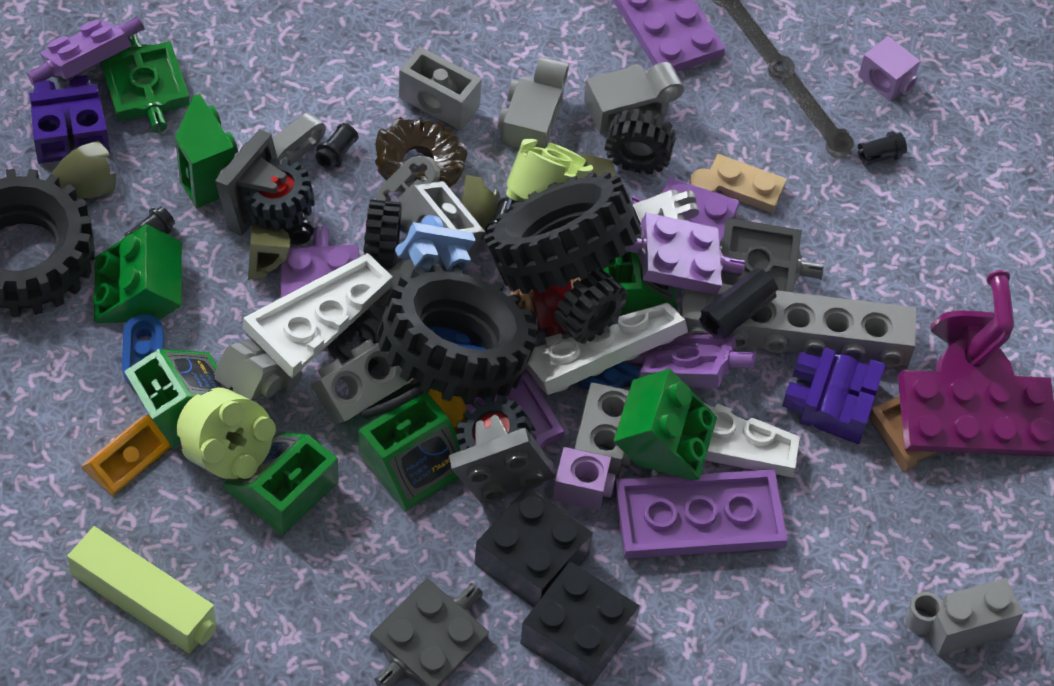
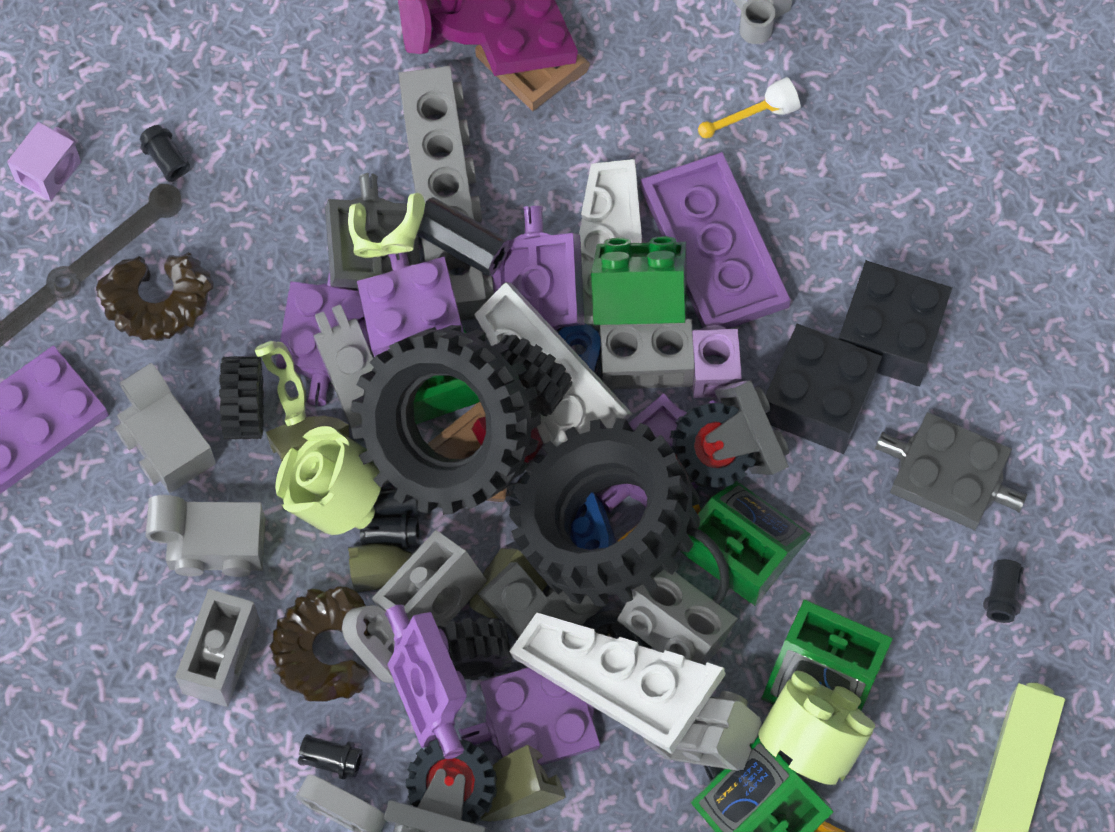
camera: 100 degrees left, 10 degrees up
(304, 639) = (1004, 591): none -> black pin
(348, 181) = (426, 679): none -> medium lavender plate
(432, 245) = (476, 574): light blue hips -> none
(671, 172) = (294, 406): none -> yellowish green cap
(736, 94) = (155, 320): none -> dark brown piece
(741, 182) = (253, 292): tan hinge -> none
(746, 247) = (398, 241): none -> yellowish green cap
(837, 610) = (779, 99): none -> hinge
(839, 393) = (522, 147): dark purple hips -> none

